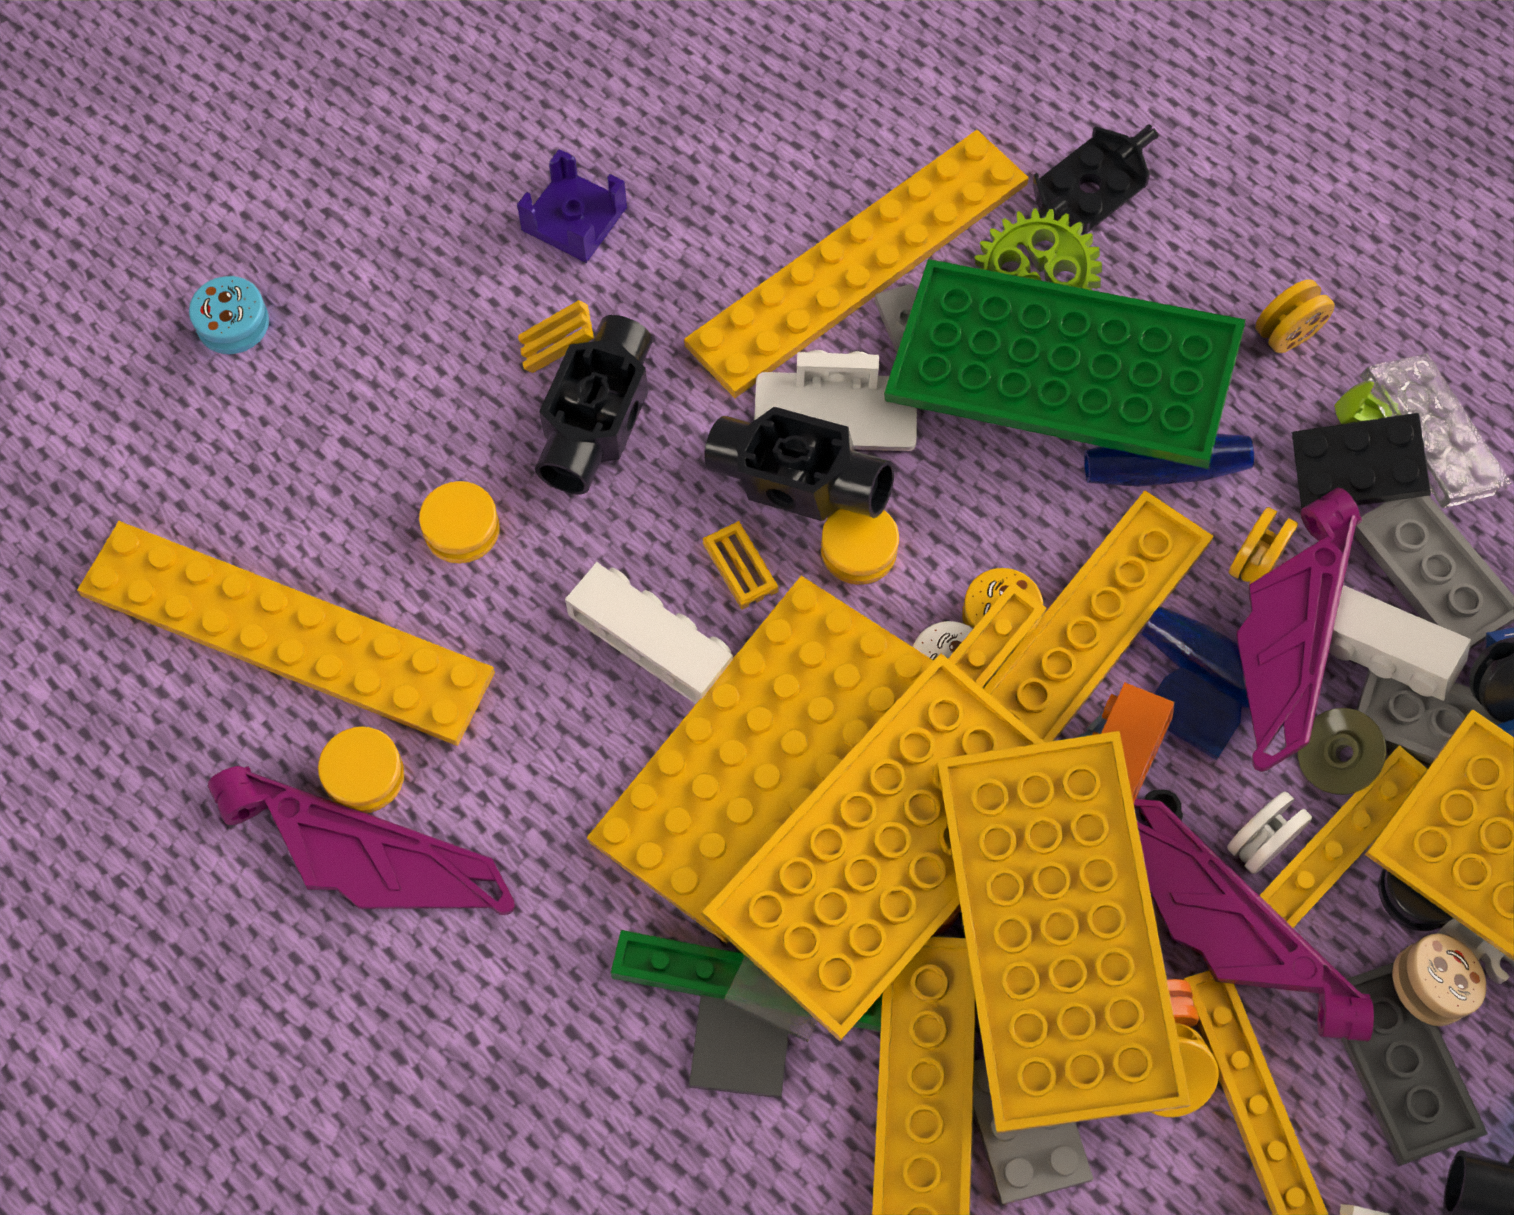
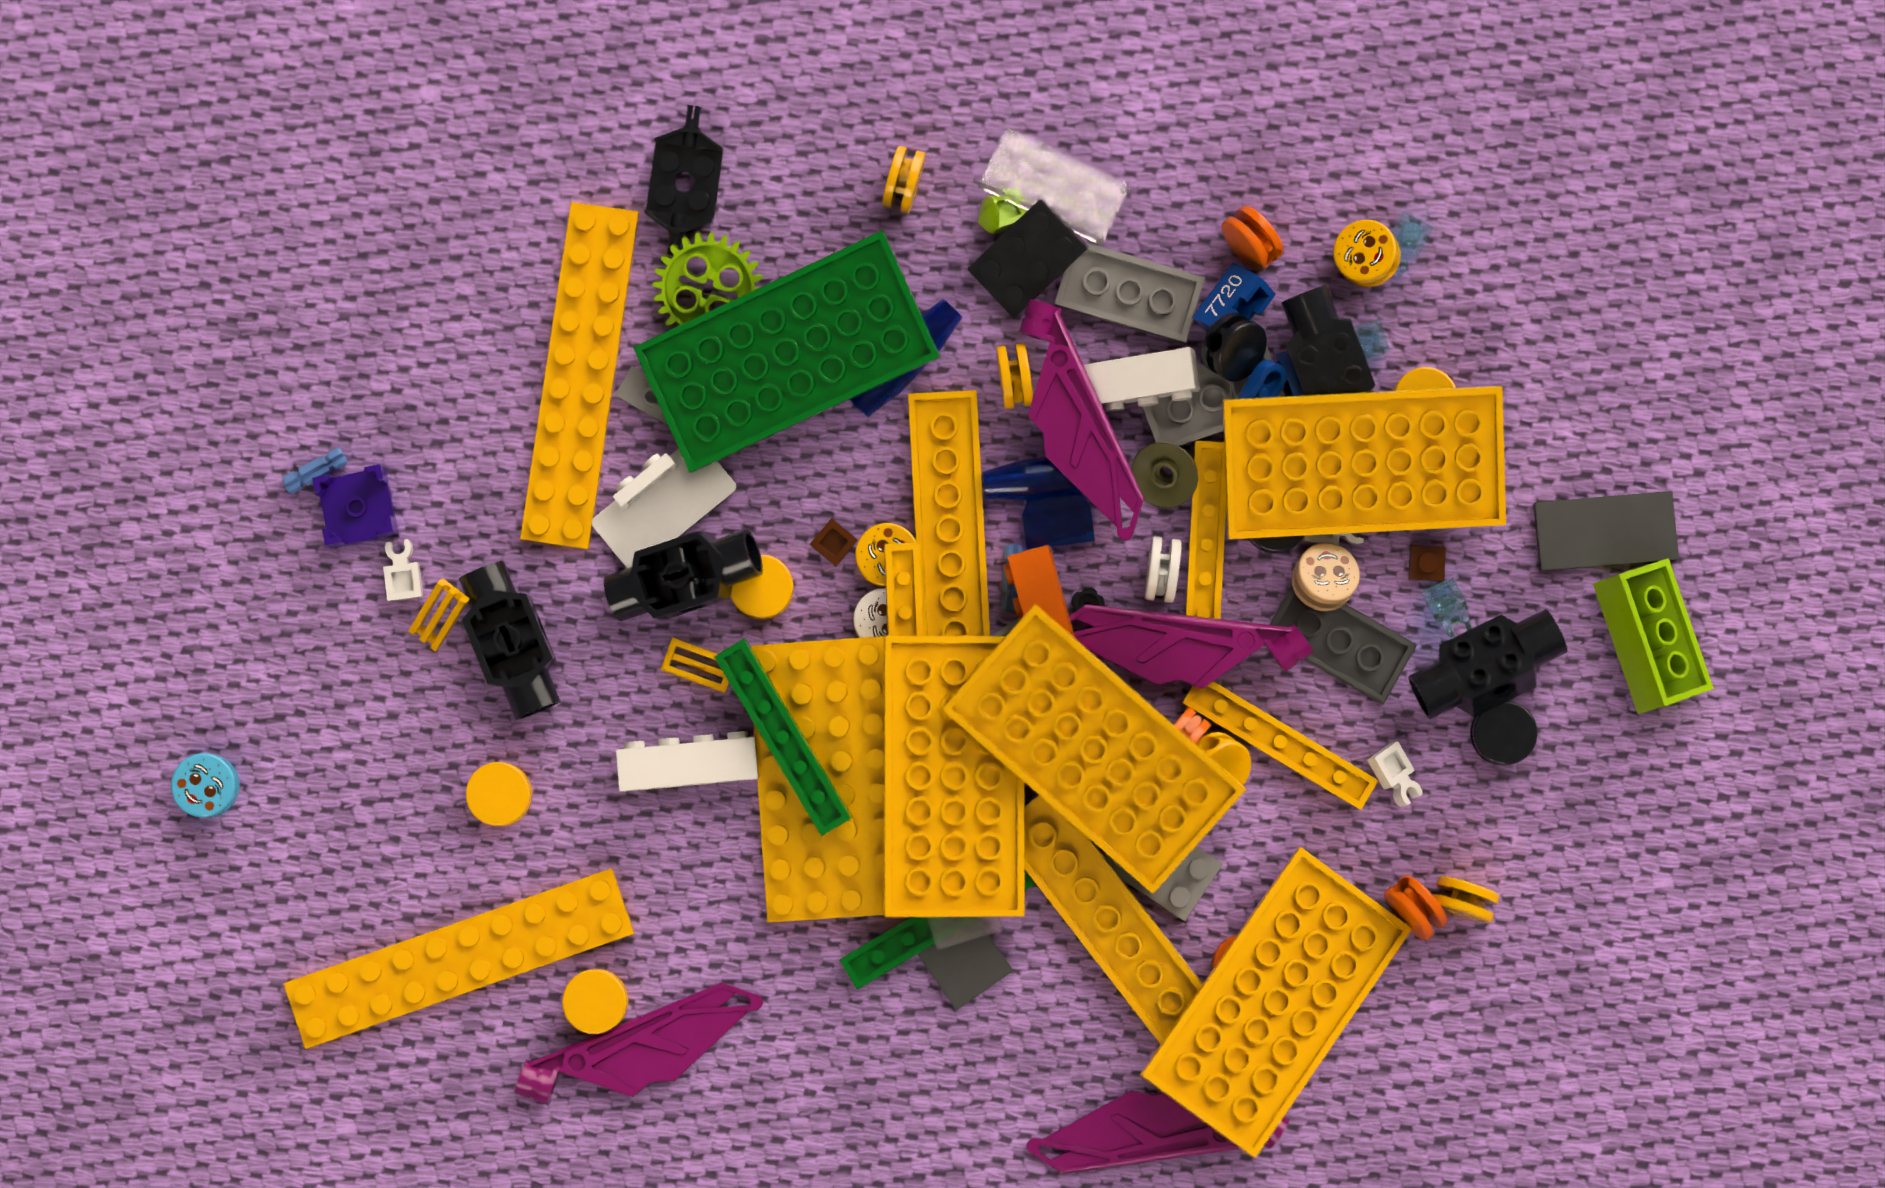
camera: 40 degrees left, 20 degrees up
(558, 289) = (402, 578): none -> white plate
(591, 165) = (318, 467): none -> medium blue axle
(758, 675) = (783, 737): none -> green plate
(961, 559) = (833, 542): none -> reddish brown plate

